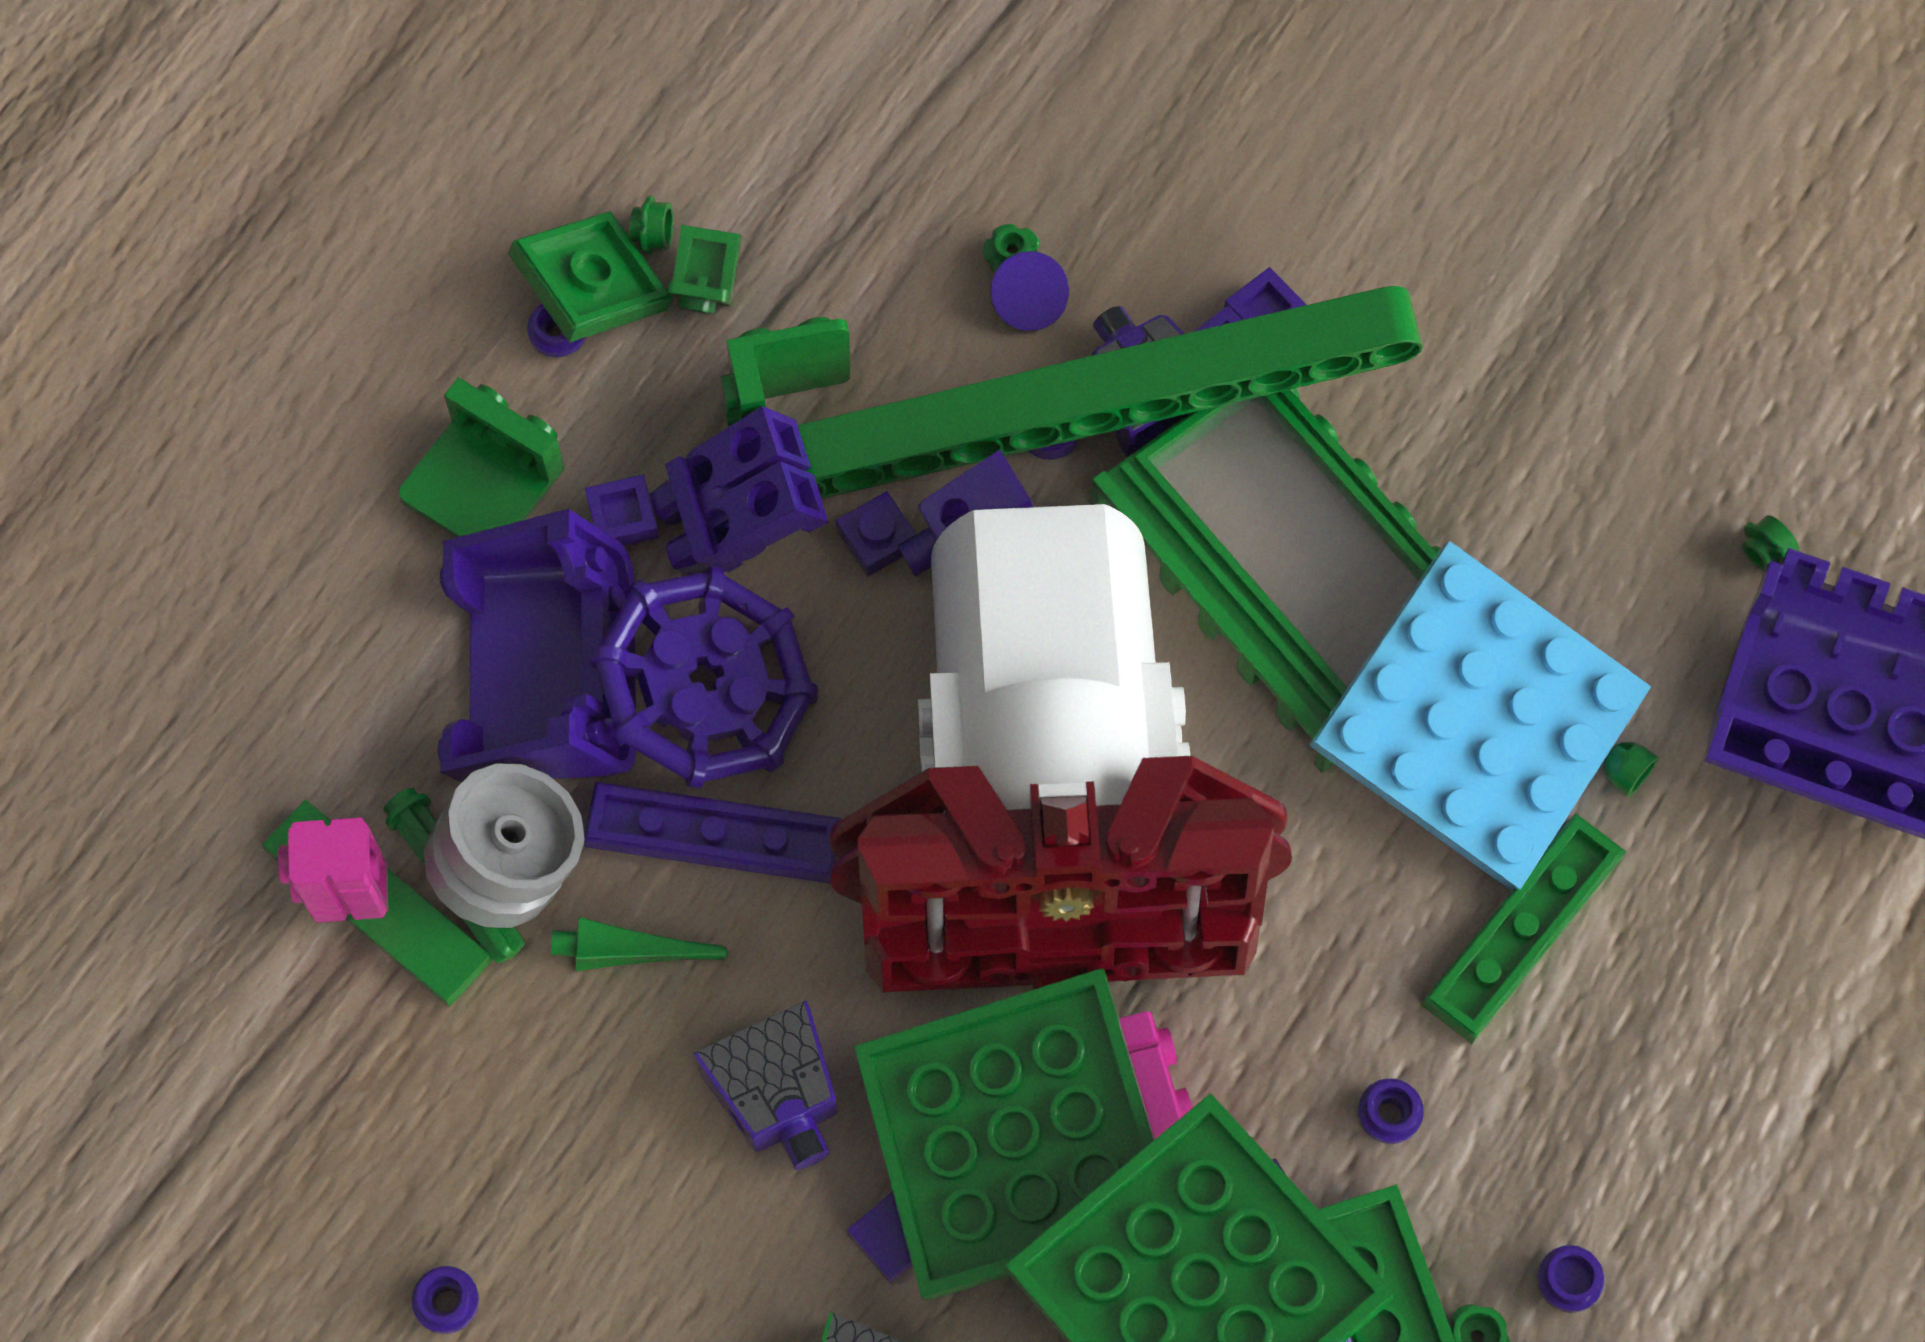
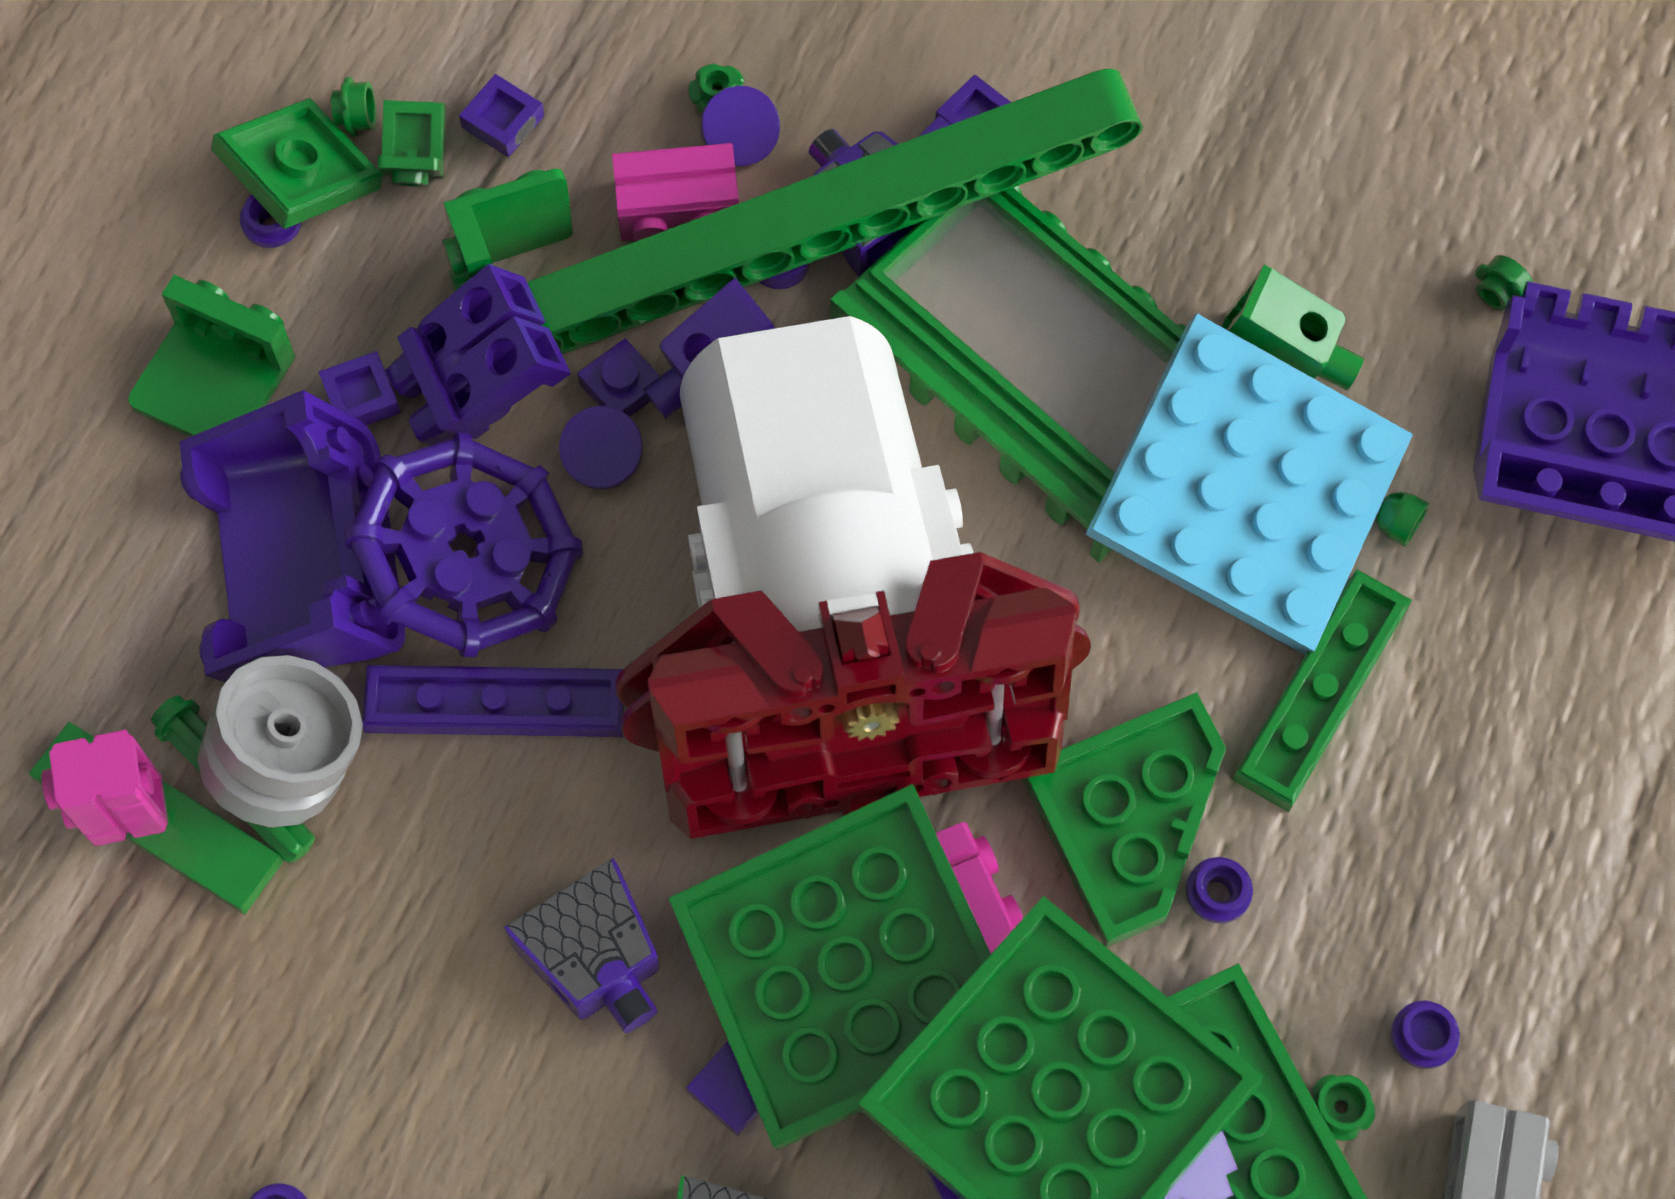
camera: 10 degrees left, 0 degrees up
(607, 946) = (401, 829): green piece -> none
(795, 252) = (501, 115): none -> dark purple plate
(849, 597) = (601, 447): none -> dark purple piece
(953, 347) = (672, 187): none -> dark pink brick
(1313, 1022) = (1130, 811): none -> green plate
(1546, 566) = (1293, 327): none -> green torso

